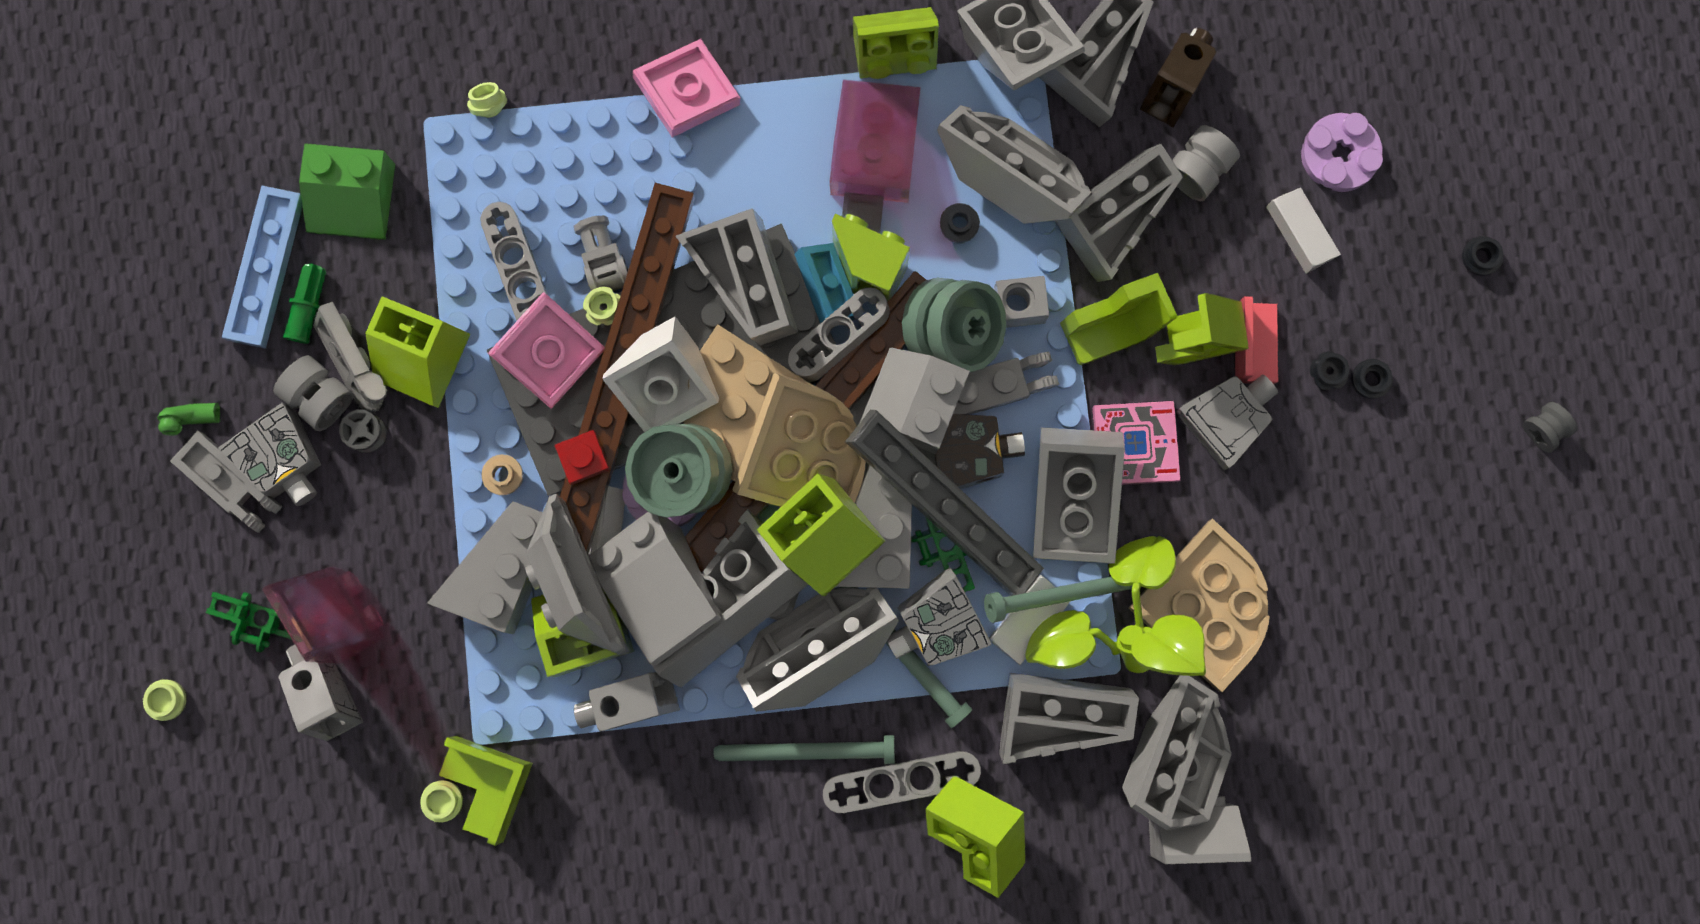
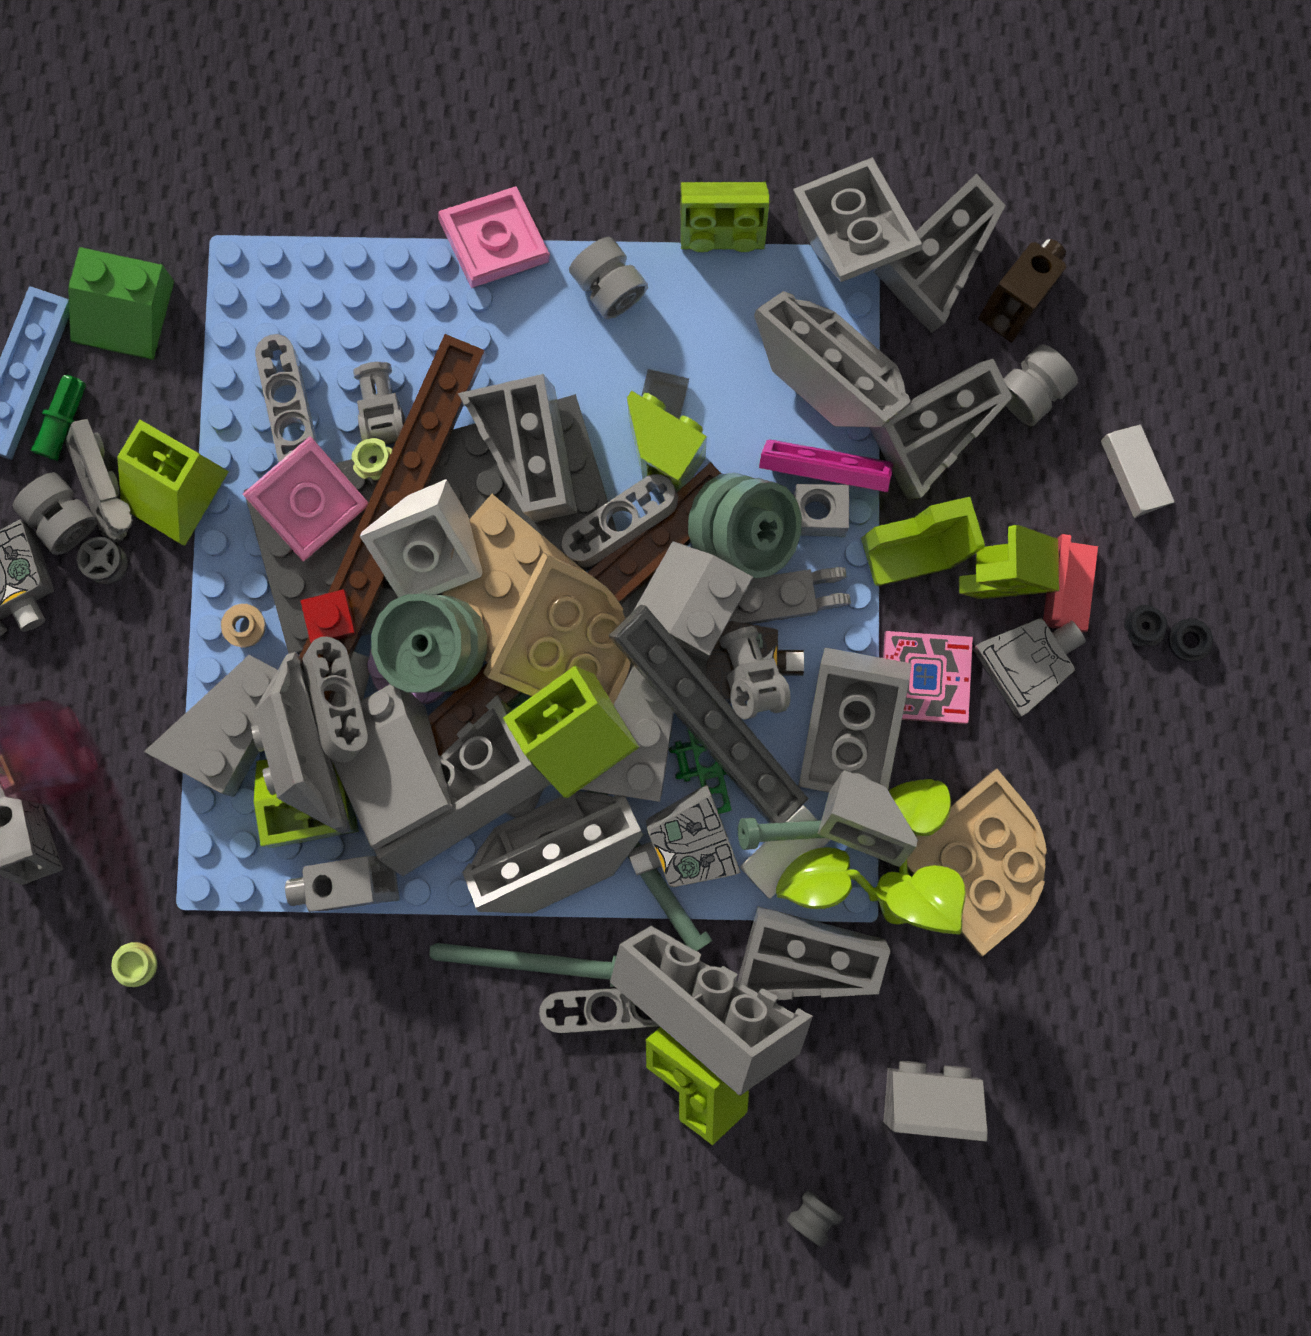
camera: 10 degrees right, 0 degrees up
(486, 100) = (279, 224): yellowish green plate -> none
(498, 785) = (196, 953): lime panel -> none
(597, 549) = (327, 716): none -> light grey beam
(791, 107) = (604, 272): none -> light grey wheel
(824, 278) = (613, 458): dark azure plate -> none
(874, 140) = (687, 317): clear pink slope -> none
(955, 234) = (760, 428): black plate -> none
(980, 776) = (707, 1011): none -> light grey wedge
(981, 462) = (753, 676): none -> light grey connector
(1020, 260) = (826, 465): none -> dark pink tile
(1101, 580) = (867, 819): none -> light grey slope
(1180, 758) = (927, 1021): light grey wedge -> none
(1355, 134) = (1203, 371): lavender plate -> none

